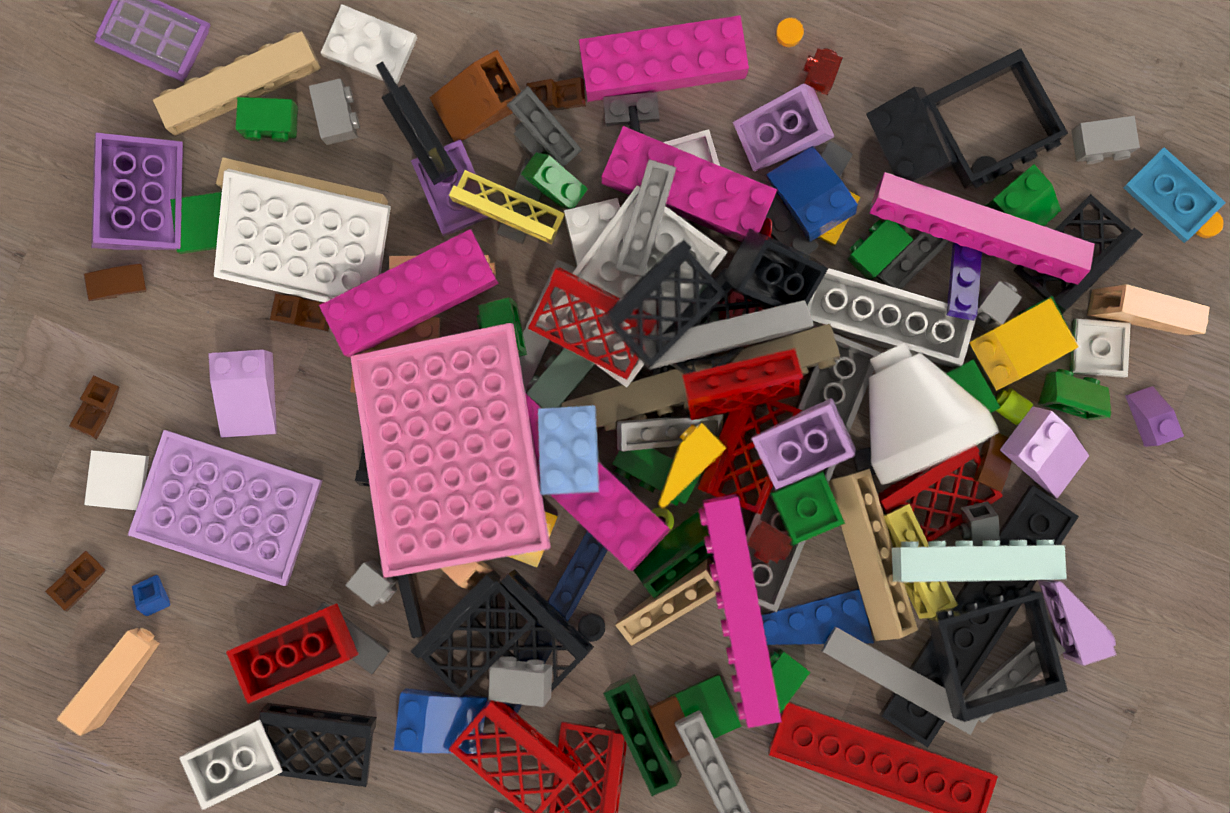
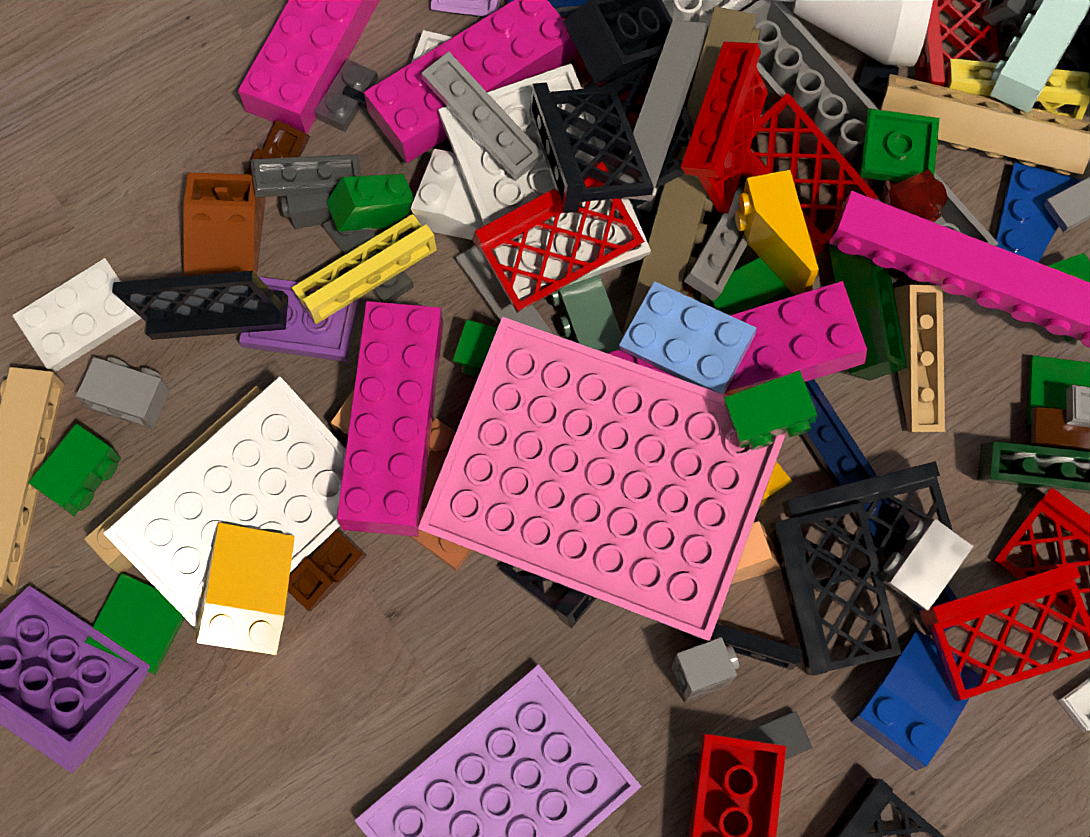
camera: 55 degrees left, 15 degrees down
(114, 282) = (133, 772): reddish brown slope -> none
(243, 392) = (374, 693): lavender slope -> none
(252, 276) = (245, 589): none -> yellow slope
(538, 533) = (771, 411): none -> green brick
(592, 627) = (897, 457): black tile -> none
(804, 444) = (830, 100): lavender slope -> none

